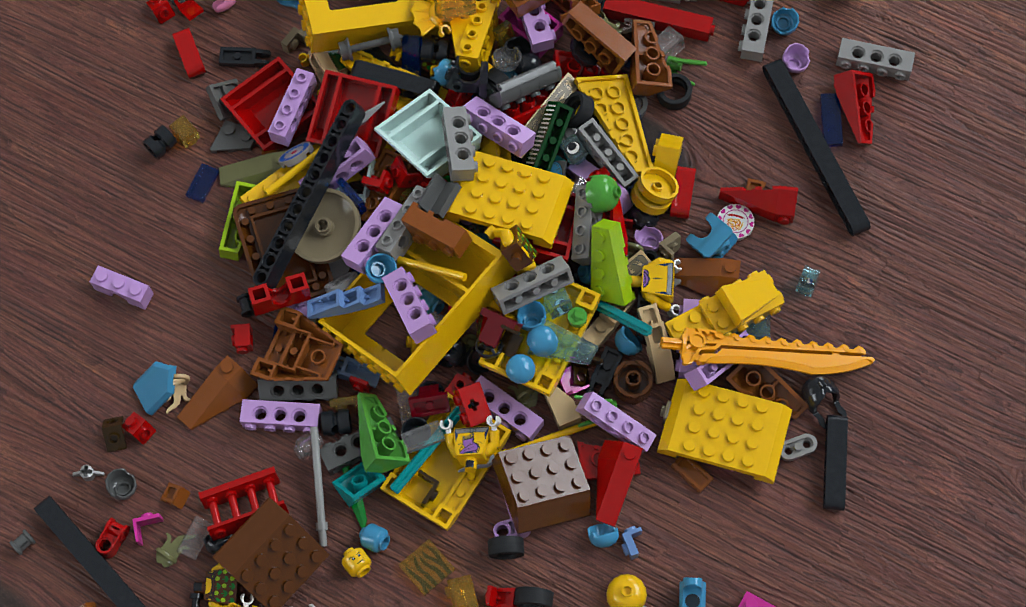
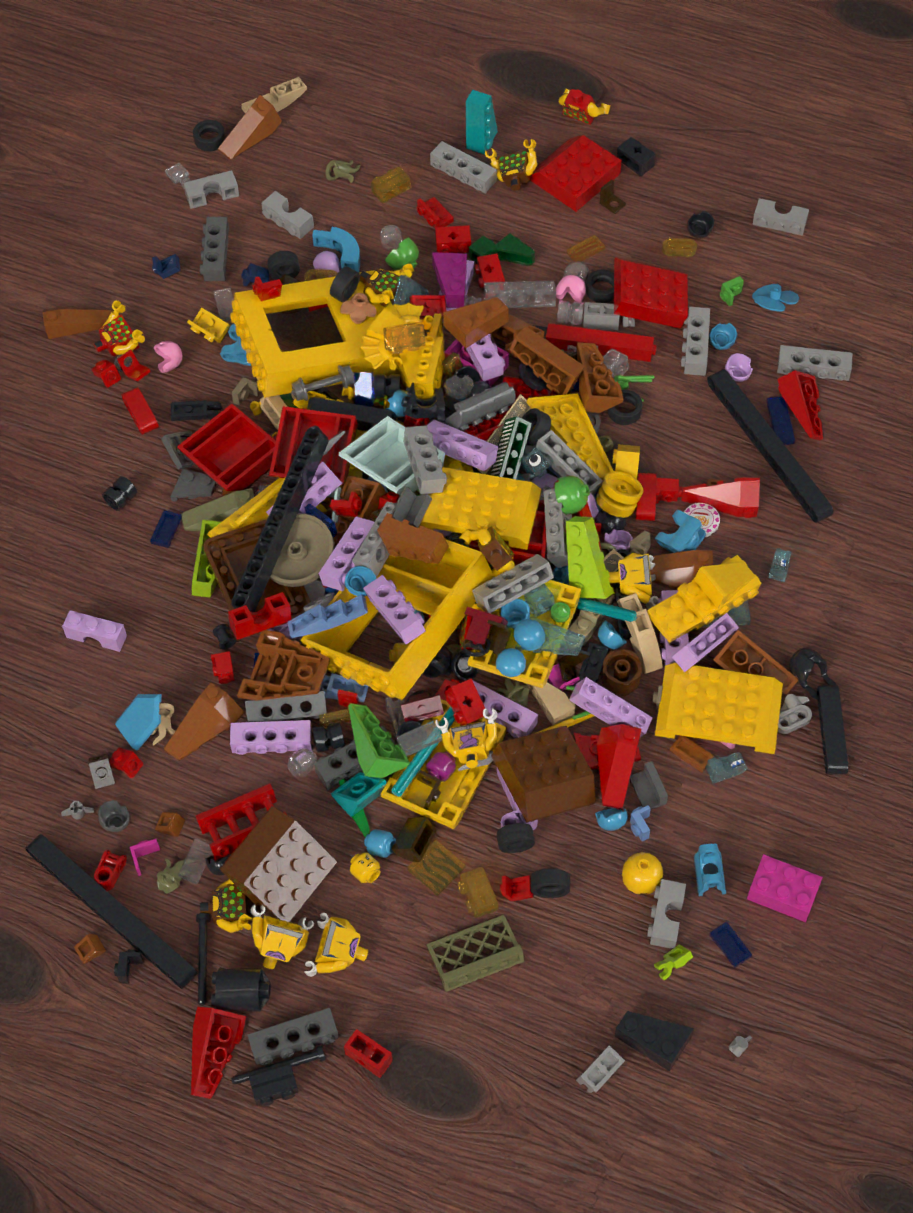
camera: 10 degrees left, 10 degrees down
(22, 542) = (17, 881): dark grey bush -> none
(184, 131) = (144, 482): clear yellow brick -> none
(292, 107) = (252, 446): lavender brick -> none
(295, 154) = (260, 488): light grey tile -> none
(322, 525) = (324, 836): light grey bar -> none
(402, 176) = (371, 496): red bracket -> none
(407, 537) = (414, 839): none -> dark brown brick
(432, 268) = (412, 575): yellow bar -> none
(441, 465) = (441, 765): none -> magenta head
(644, 505) = (649, 787): none -> dark grey panel
(649, 129) = (606, 443): none -> olive tile
(705, 187) = (667, 490): none -> red brick
(724, 492) = (725, 767): none -> clear light blue leg
(800, 428) = (792, 701): none -> light grey piece
(809, 358) = (690, 626): light orange piece -> none

